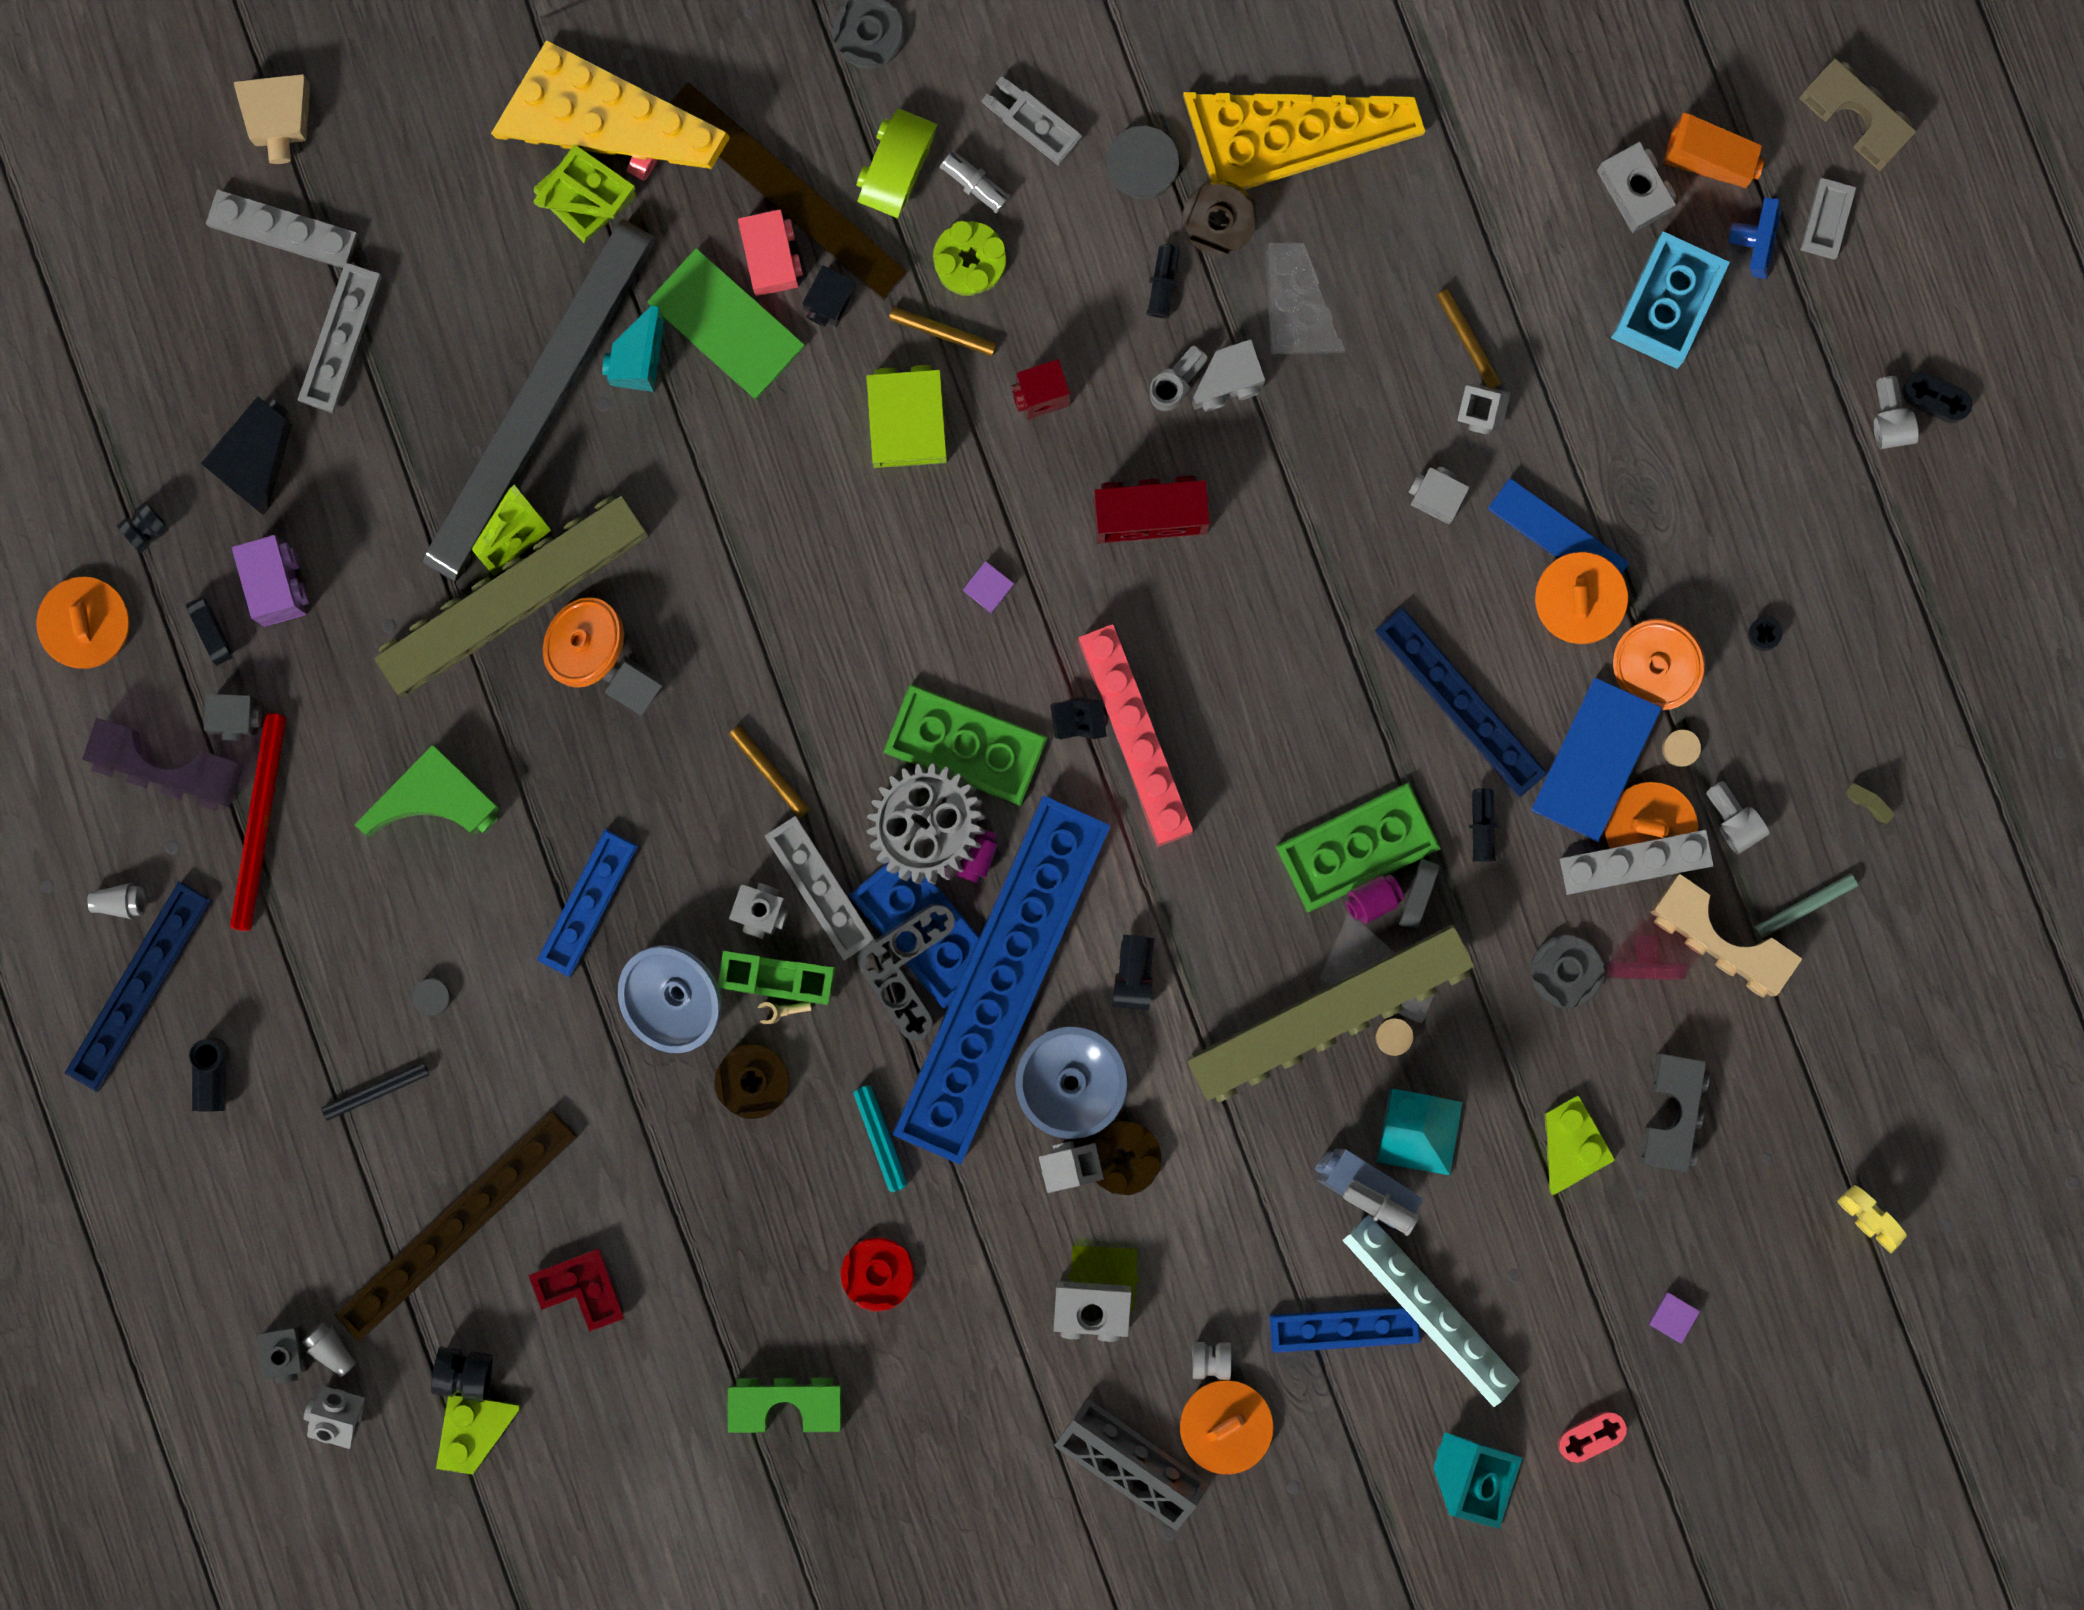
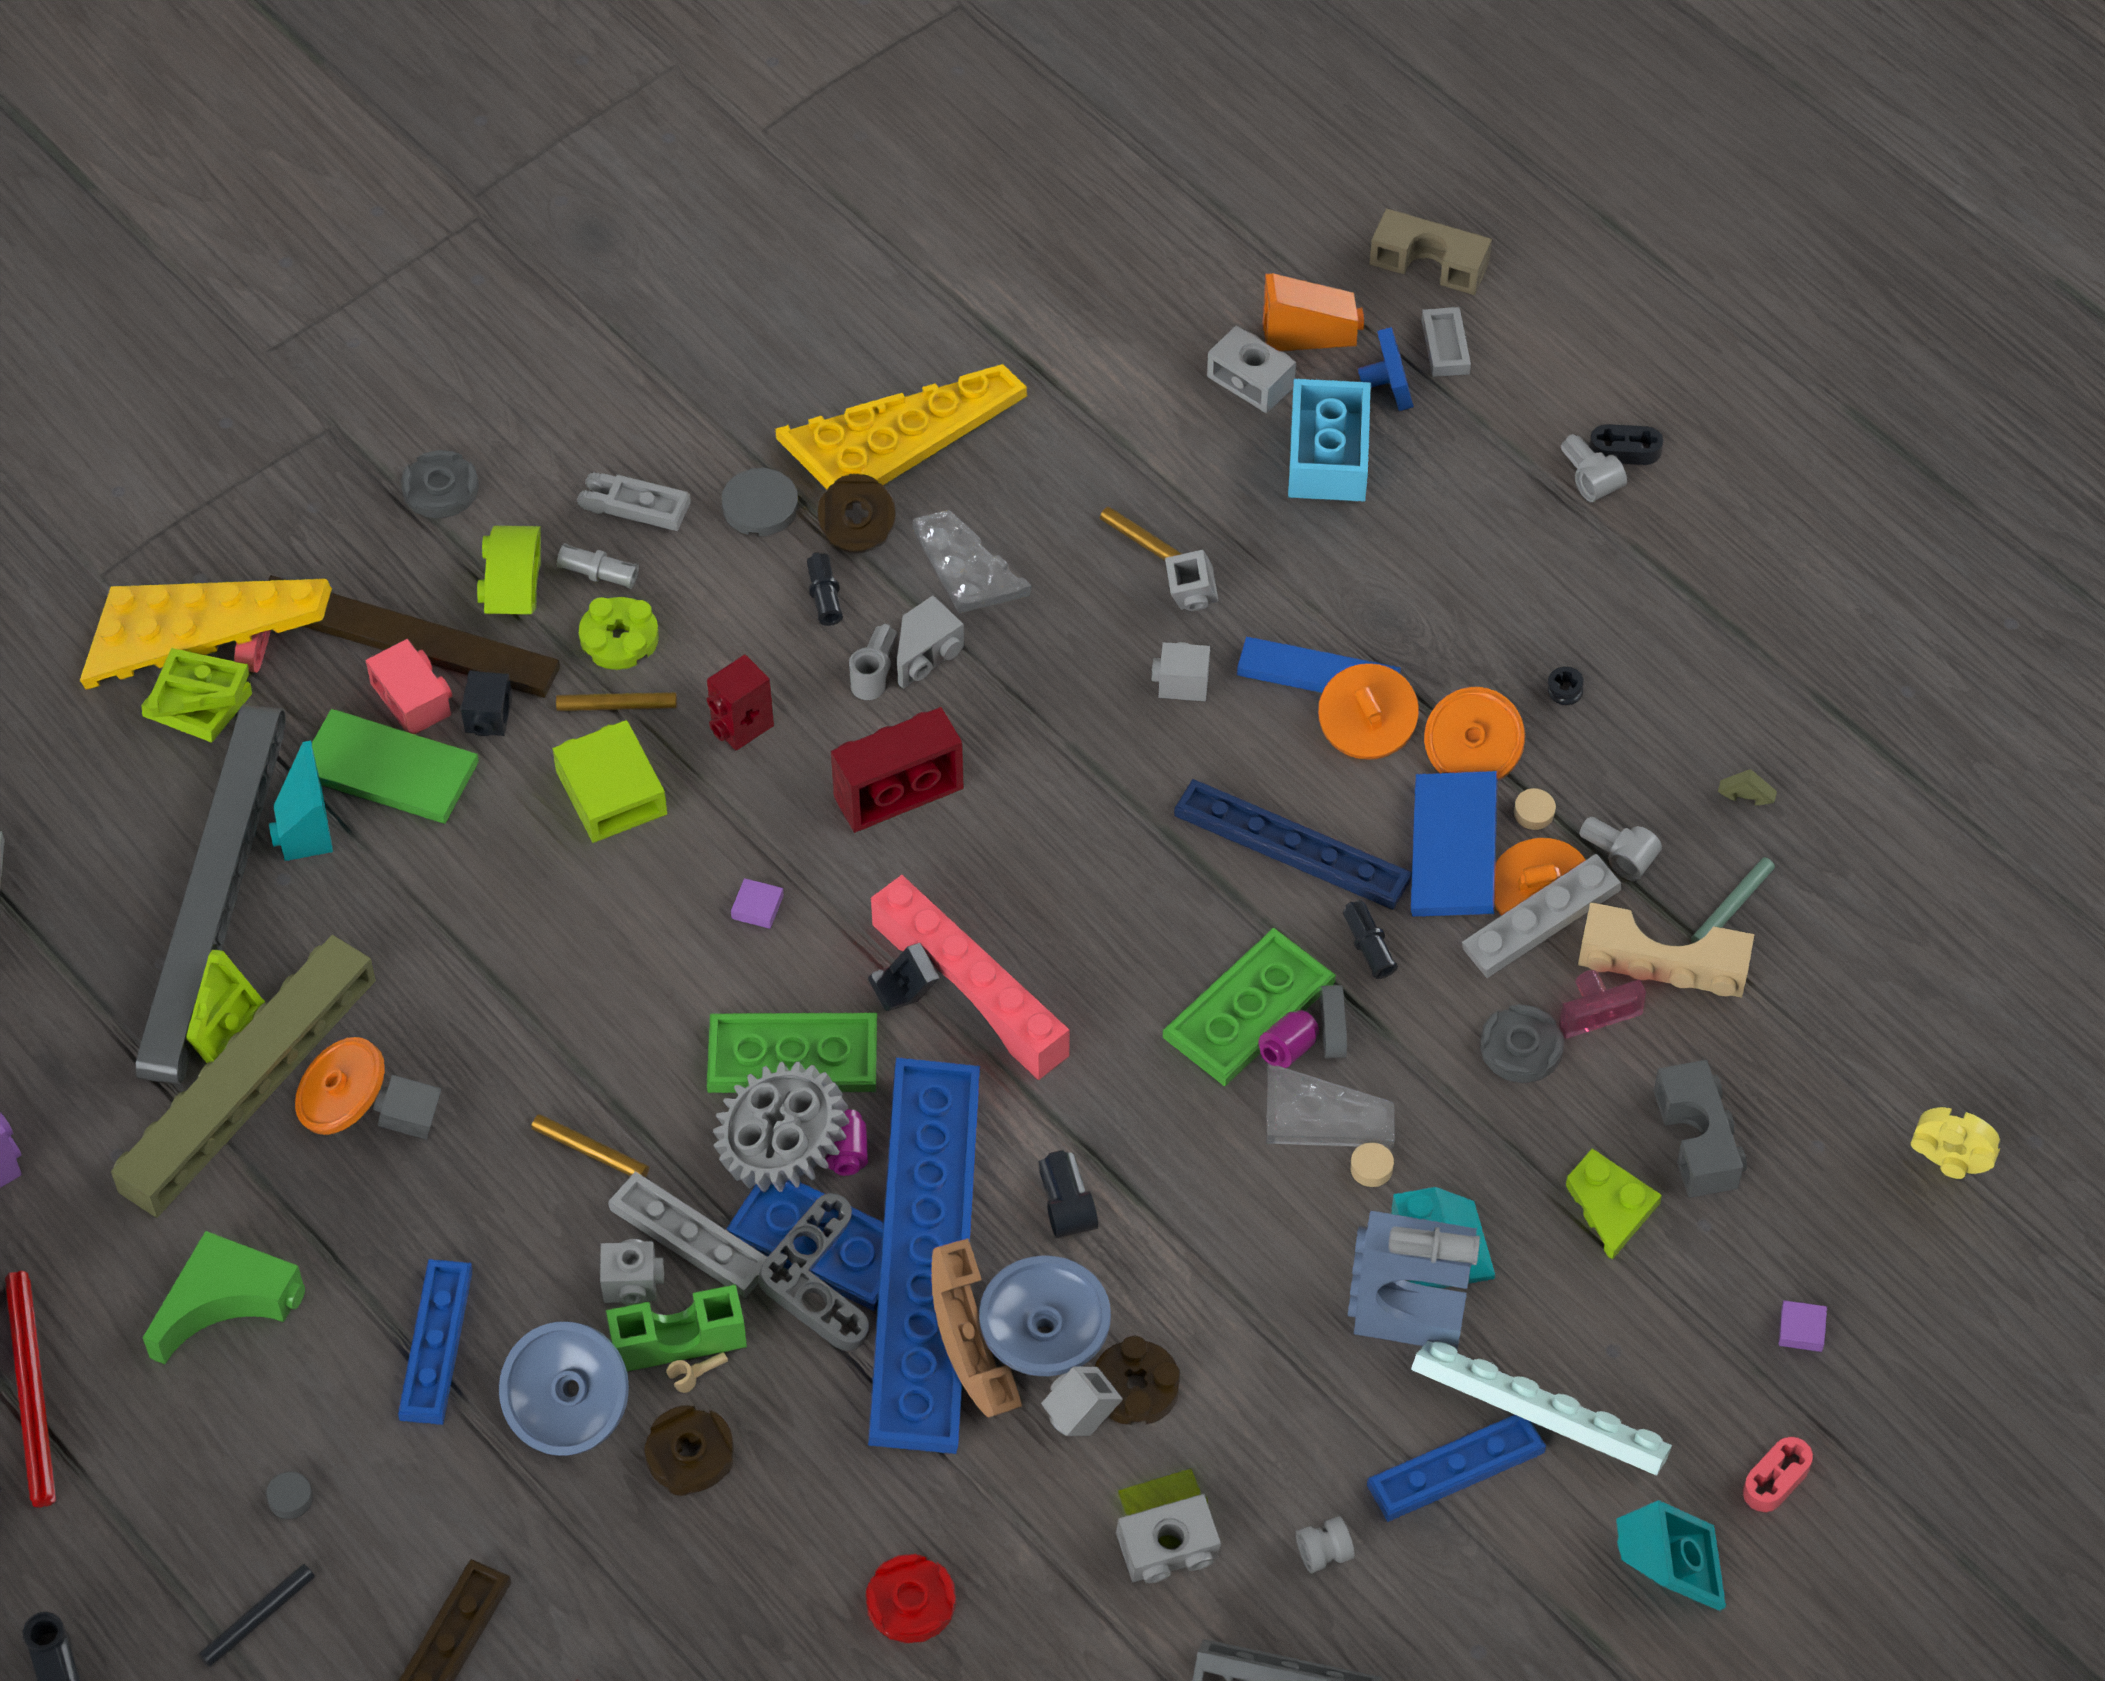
camera: 20 degrees left, 30 degrees down
(880, 1138) = (857, 1457): teal axle -> none
(1000, 1060) = (959, 1325): none -> medium nougat slope
(1226, 1427) = (1373, 1611): orange shield -> none
(1331, 1012) = (1292, 1152): olive brick -> none

